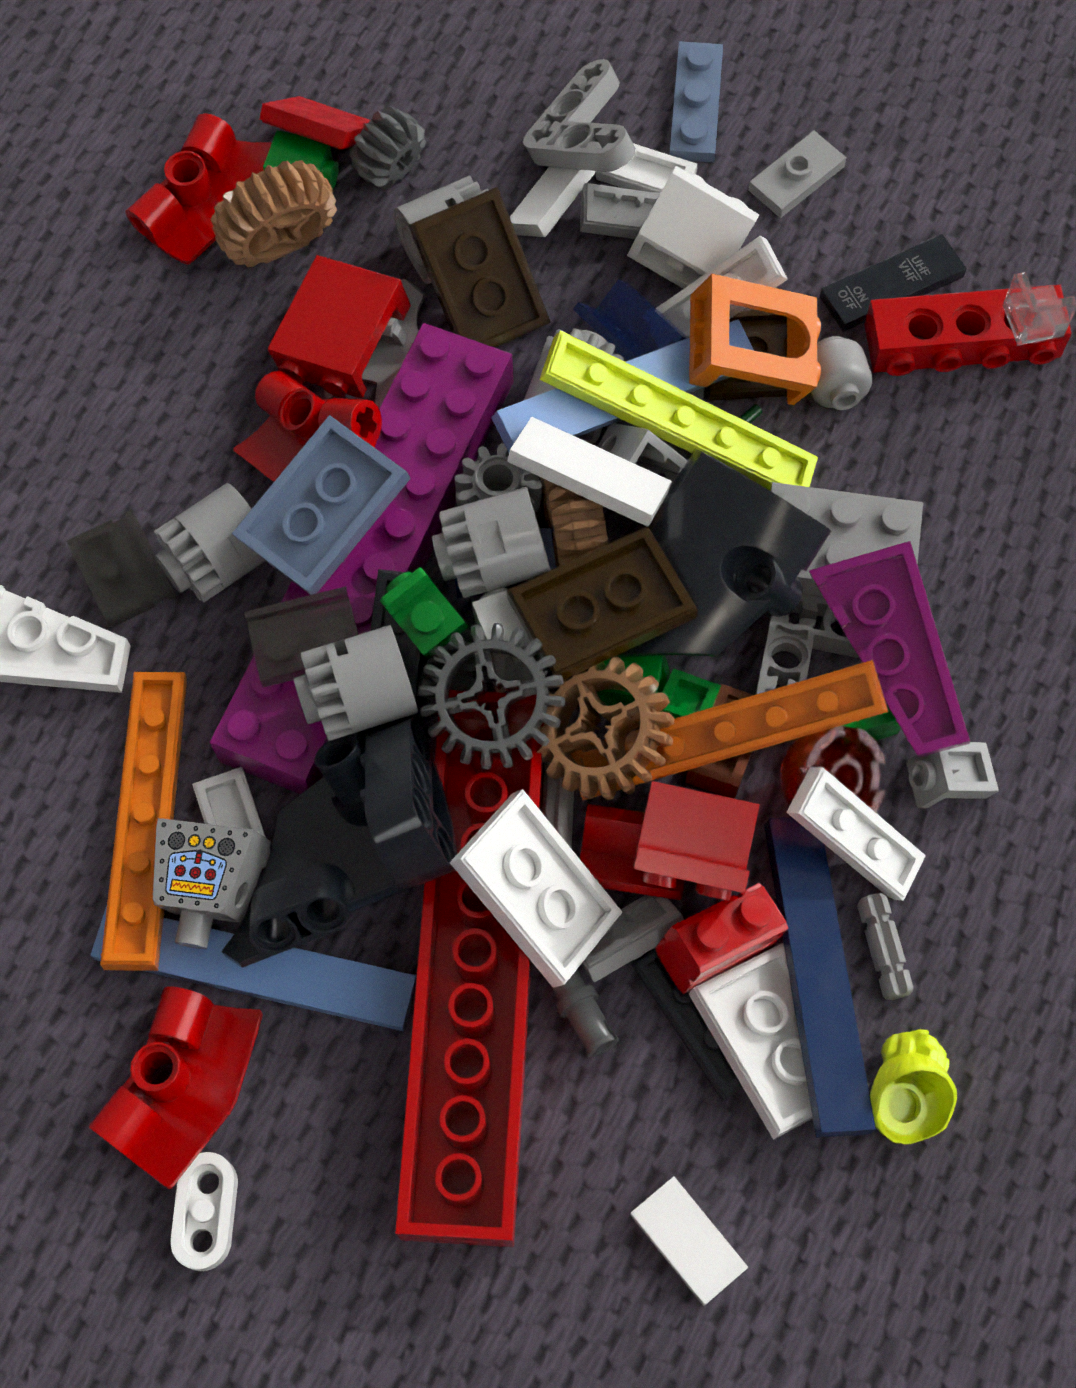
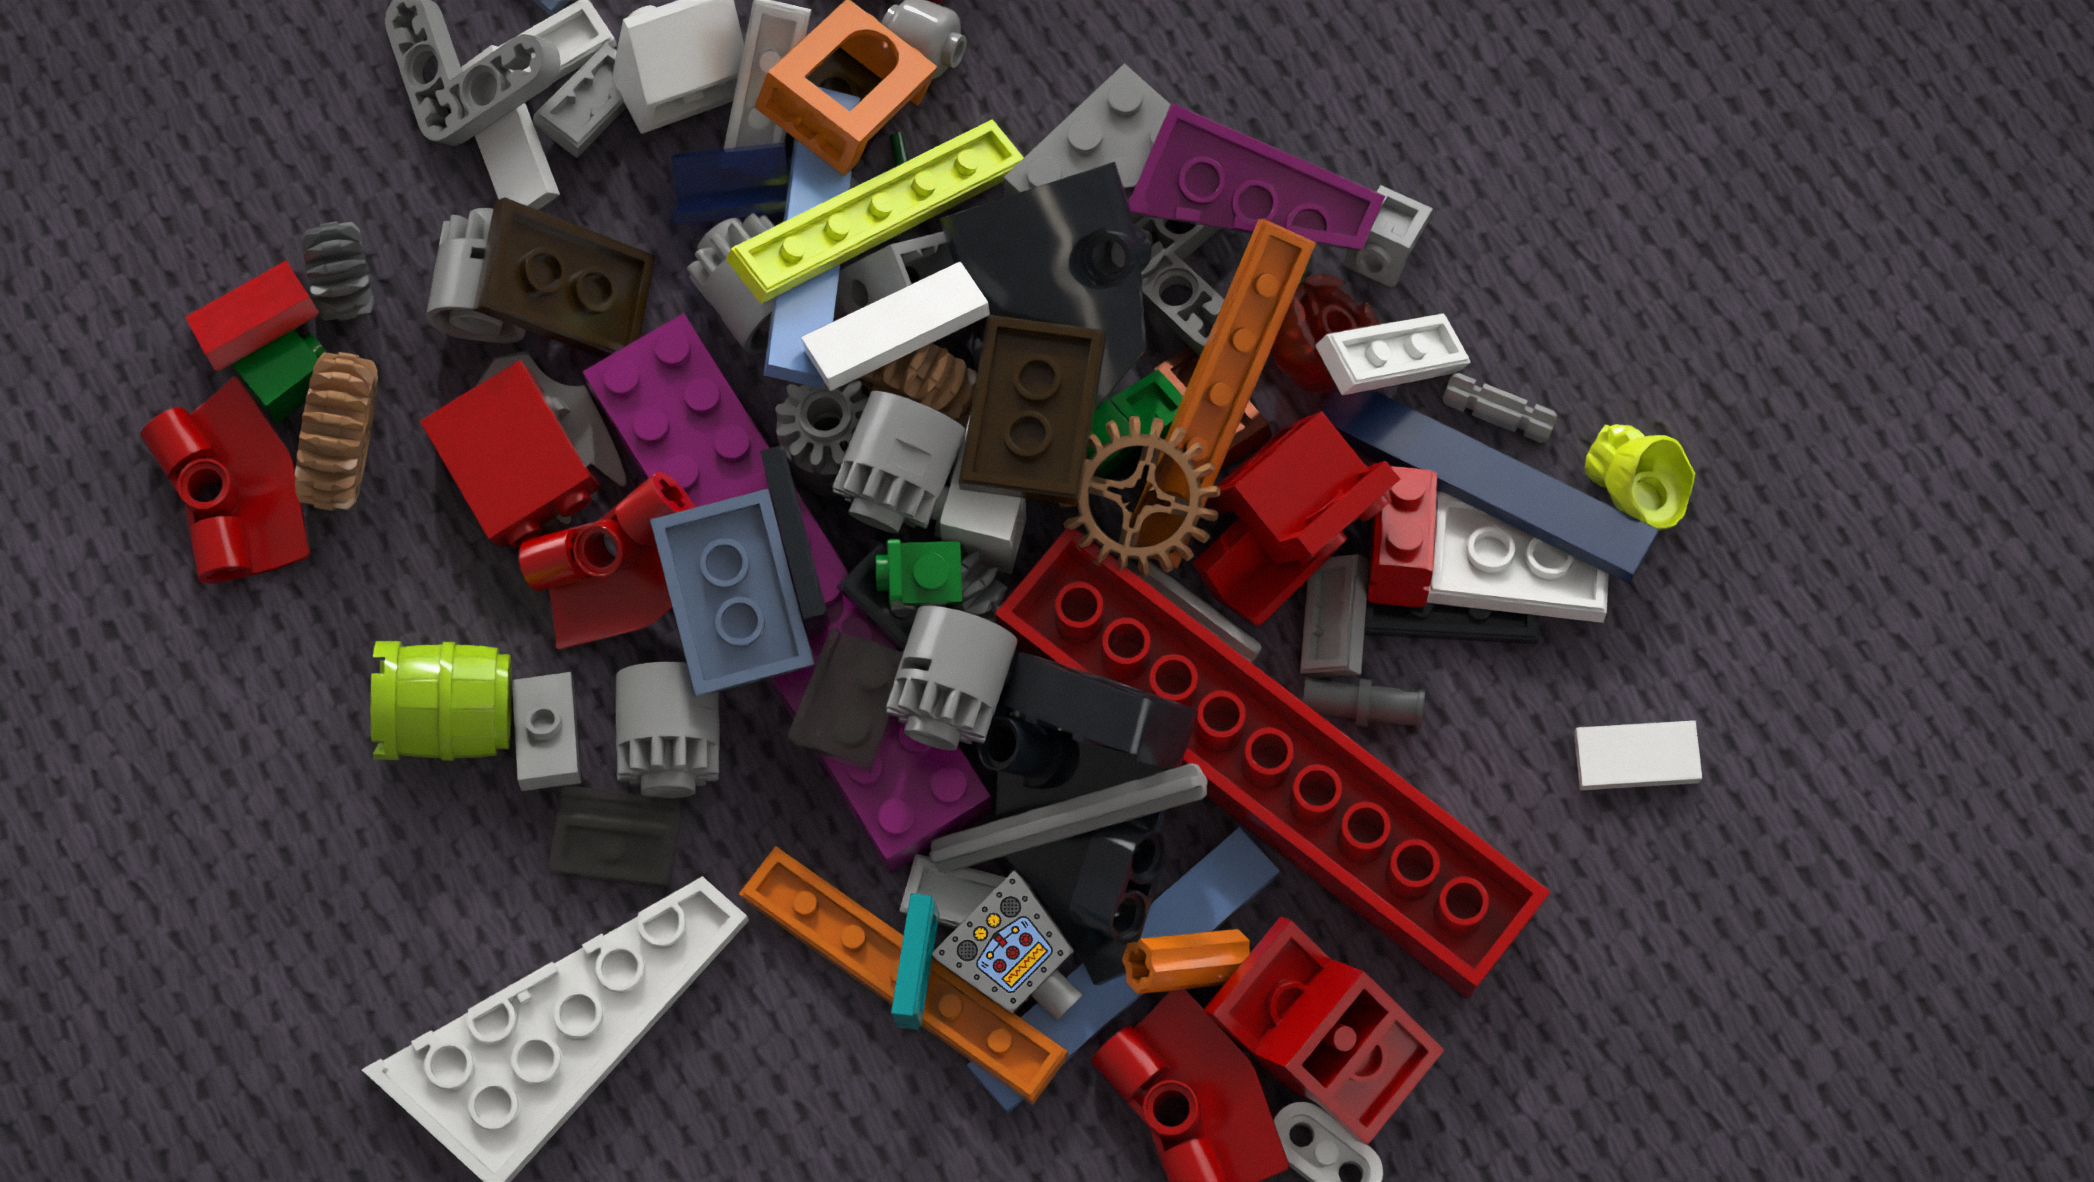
camera: 55 degrees left, 5 degrees up
(132, 394) = (440, 701): none -> lime piece
(140, 812) = (915, 962): none -> teal tile
(164, 476) = (546, 731): none -> light grey plate
(278, 1004) = (1184, 960): none -> orange axle
(288, 1142) = (1324, 1030): none -> red bracket
(320, 842) = (1069, 818): none -> light grey axle
(389, 520) = (795, 540): none -> black tile
(481, 651) = (1025, 555): dark grey gear -> none
(537, 888) = (1253, 656): white tile -> none

